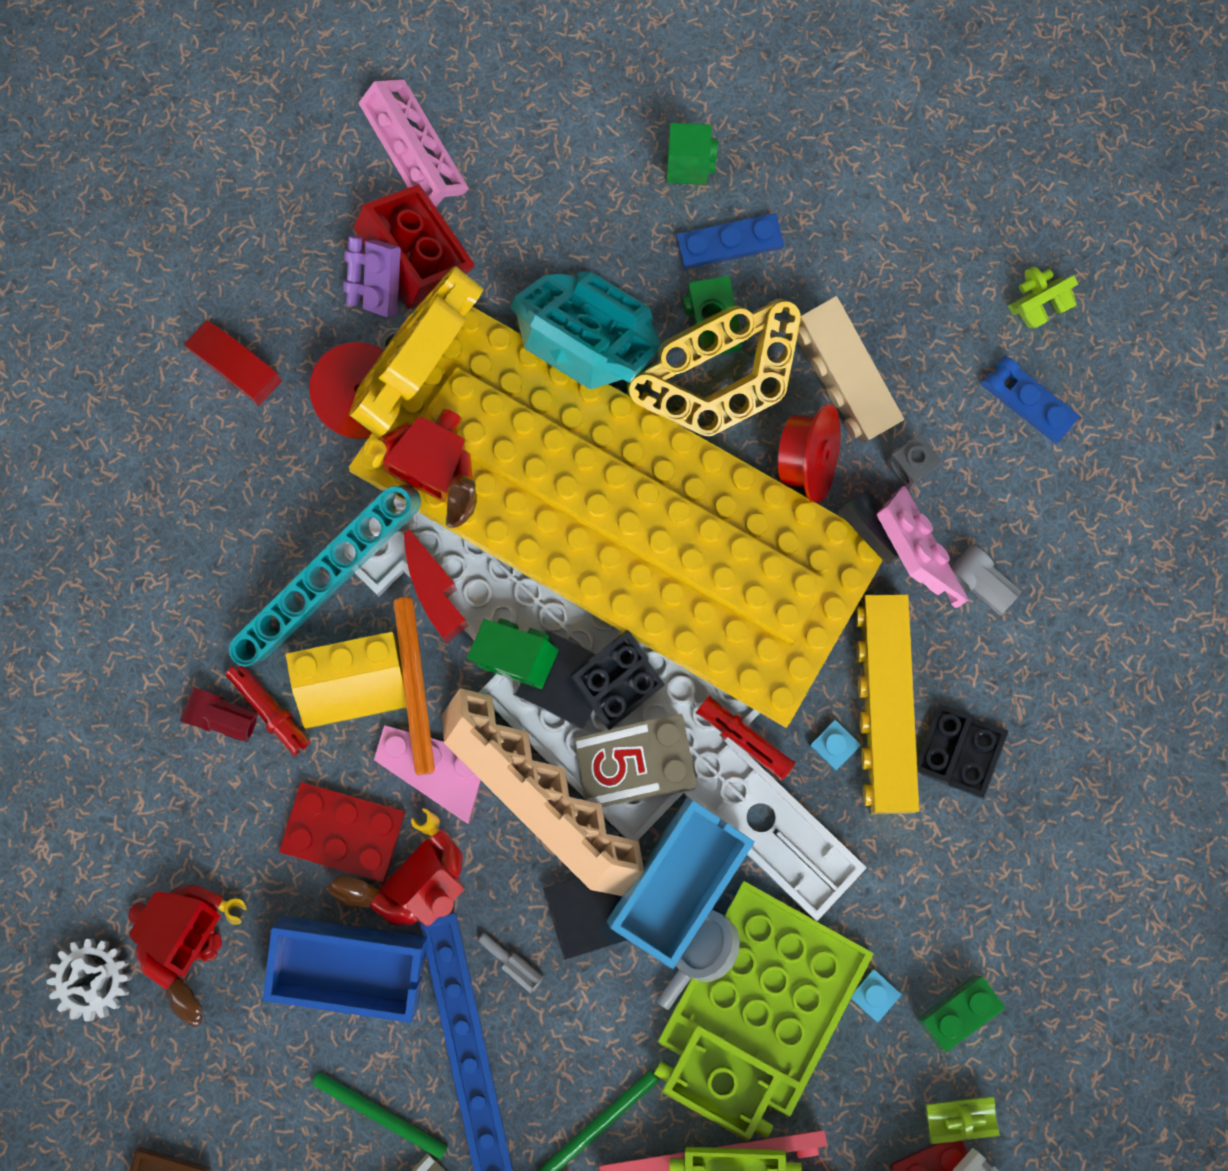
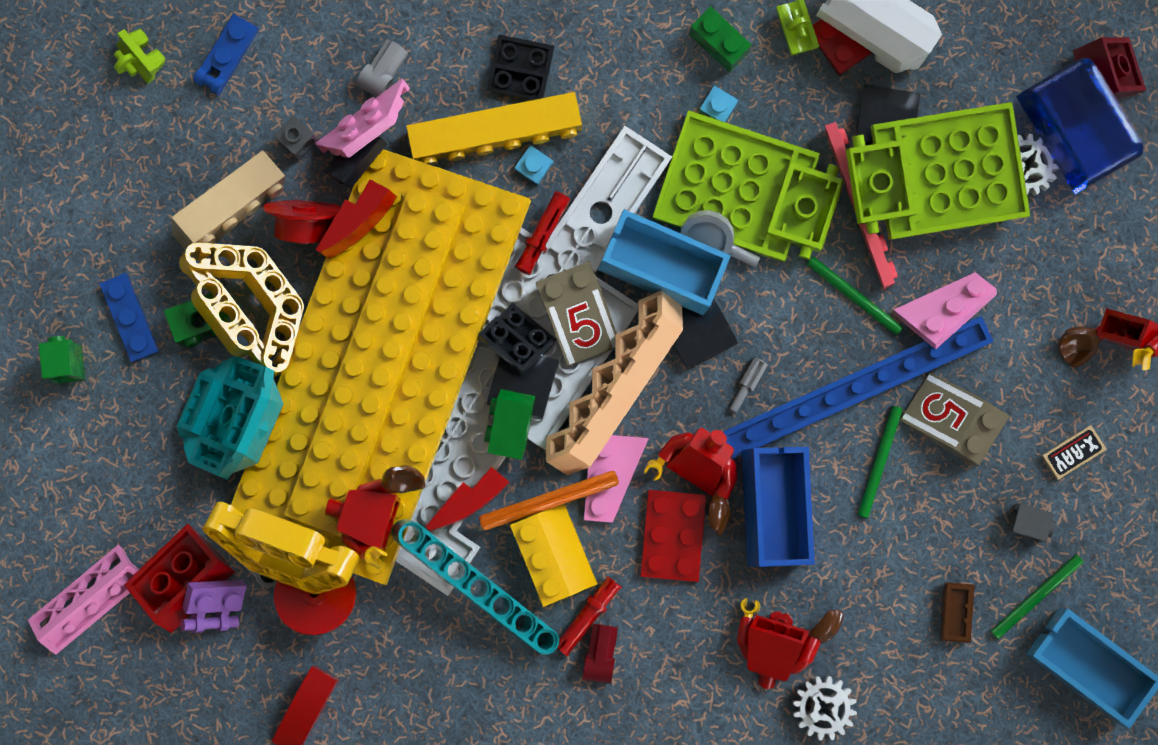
camera: 100 degrees left, 5 degrees up
(797, 510) = (357, 219): none -> red slope

